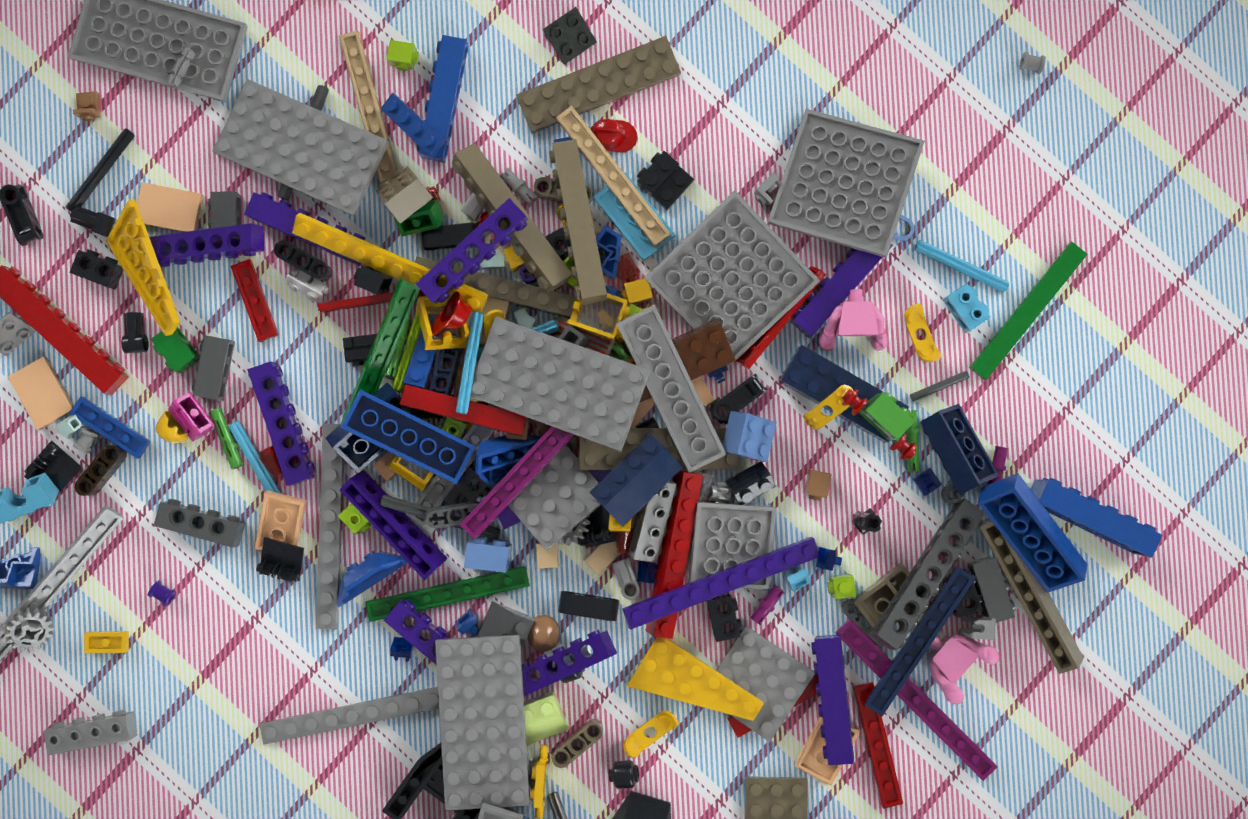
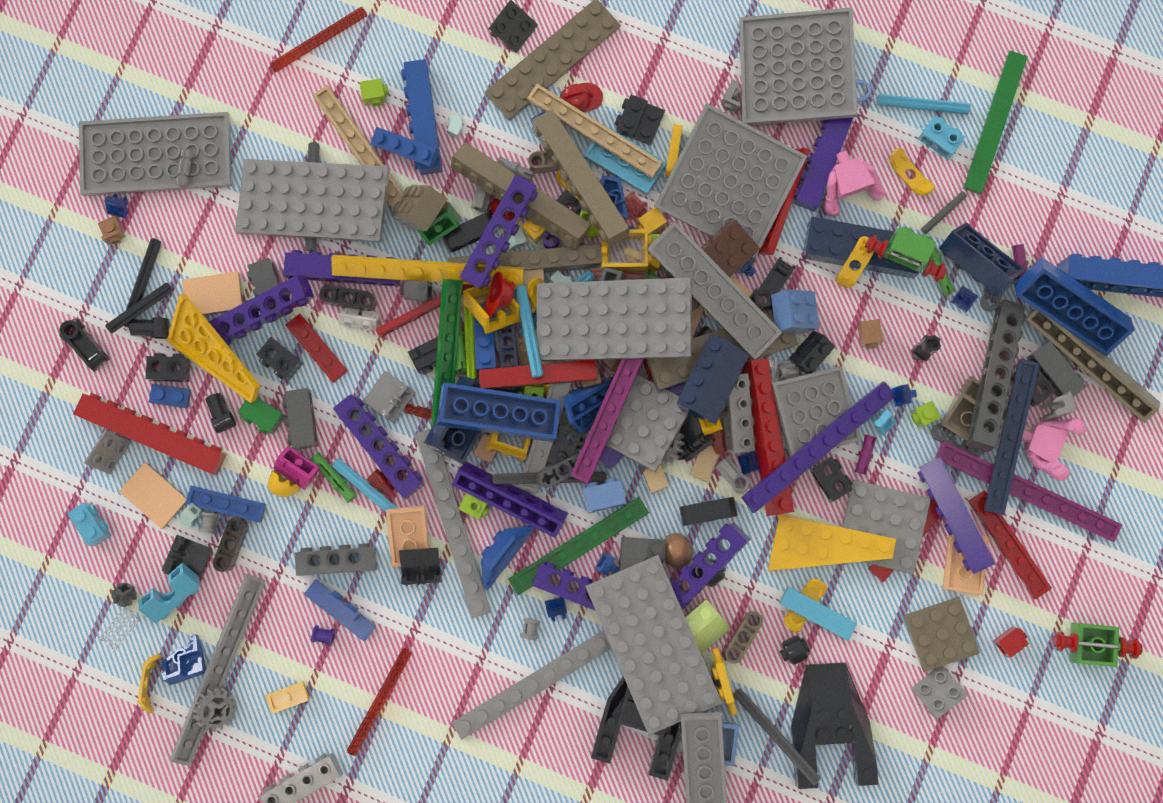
camera: 15 degrees left, 5 degrees down
(87, 197) = (139, 308): none -> black axle
(91, 297) = (170, 396): none -> blue plate
(100, 83) = (116, 206): none -> clear blue tile
(188, 573) = (343, 612): none -> blue bracket
(195, 678) = (379, 702): none -> clear red axle
(216, 296) = (282, 355): none -> black brick
(310, 376) = (389, 396): none -> light grey hinge
(334, 401) = (418, 411): none -> clear red axle
(369, 660) = (530, 629): none -> light grey bush
(474, 120) = (456, 126): none -> light aqua piece
(660, 746) = (817, 613): none -> medium azure tile
(688, 222) = (674, 148): none -> yellow beam

